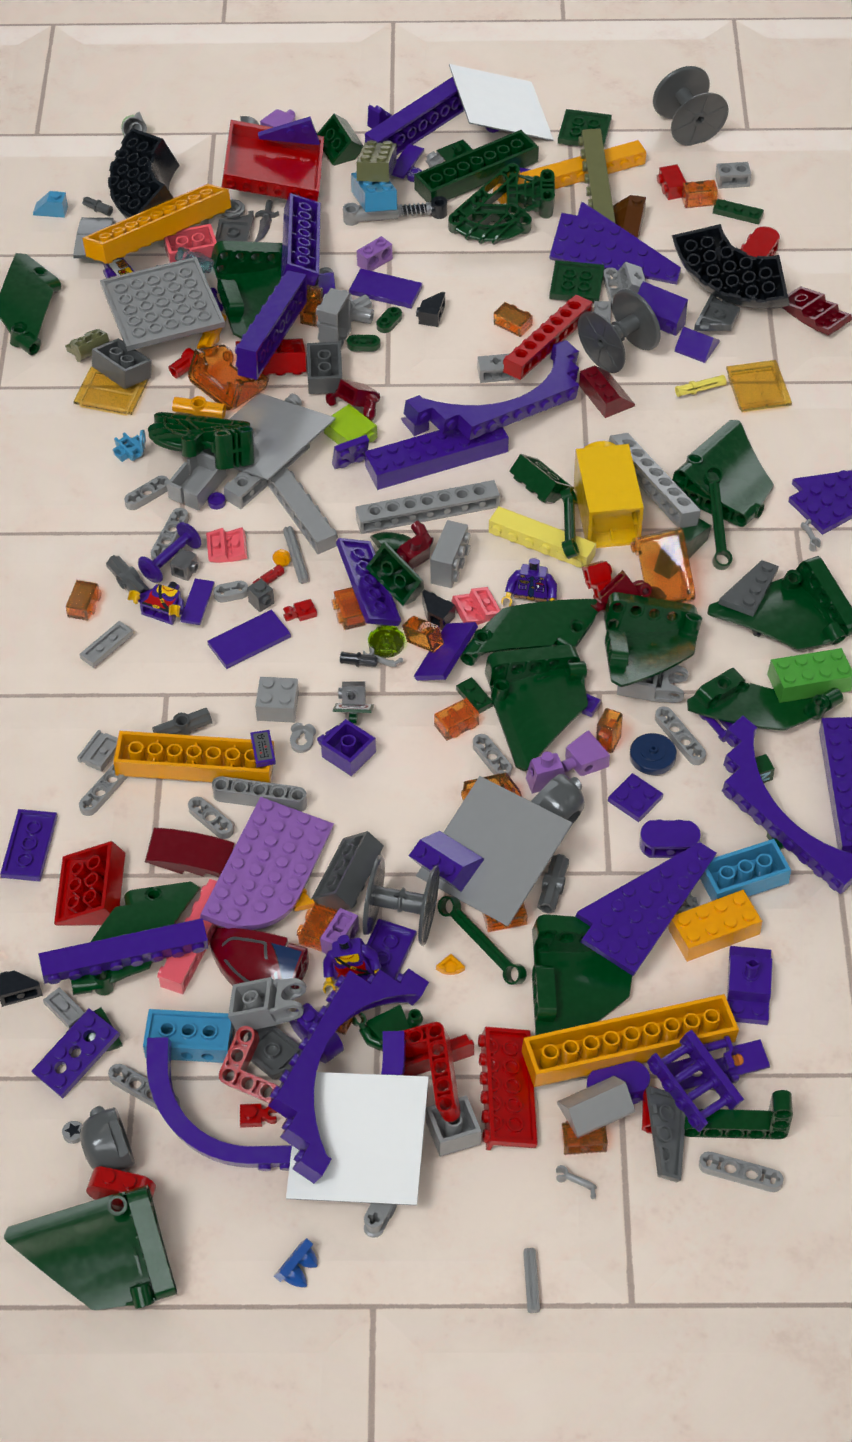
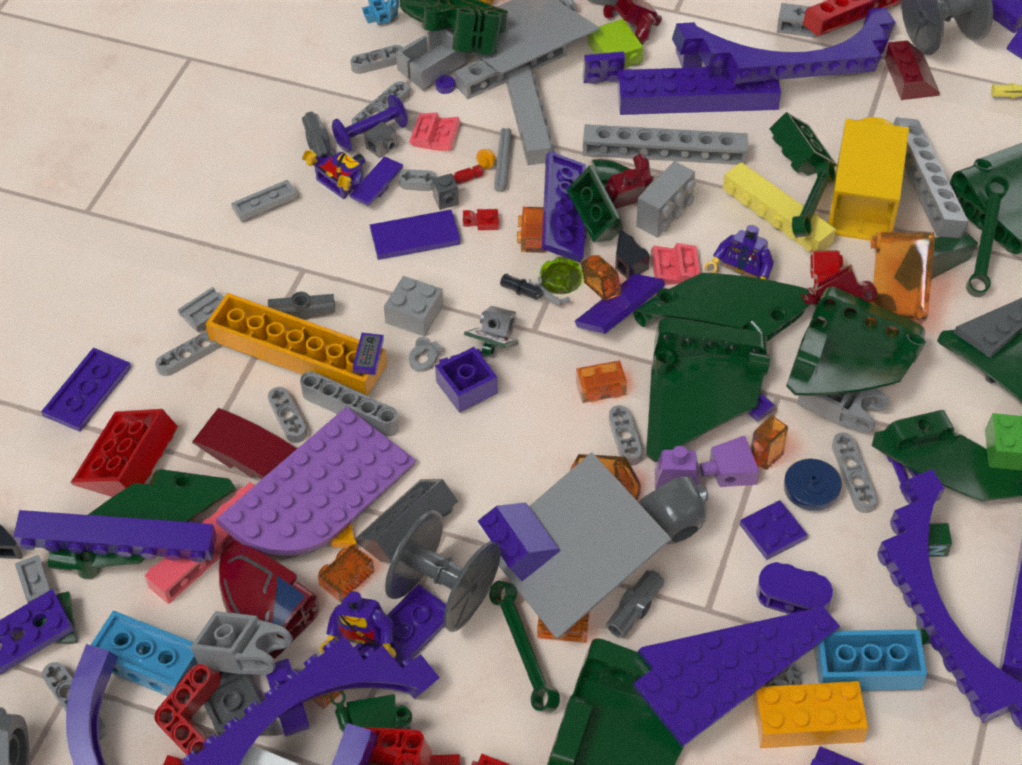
camera: 20 degrees right, 0 degrees up
(82, 600) = (261, 149): clear orange brick -> none
(342, 924) = (367, 581): medium lavender brick -> none
(450, 966) = (477, 665): light orange tile -> none
(475, 694) = (633, 361): dark green plate -> none

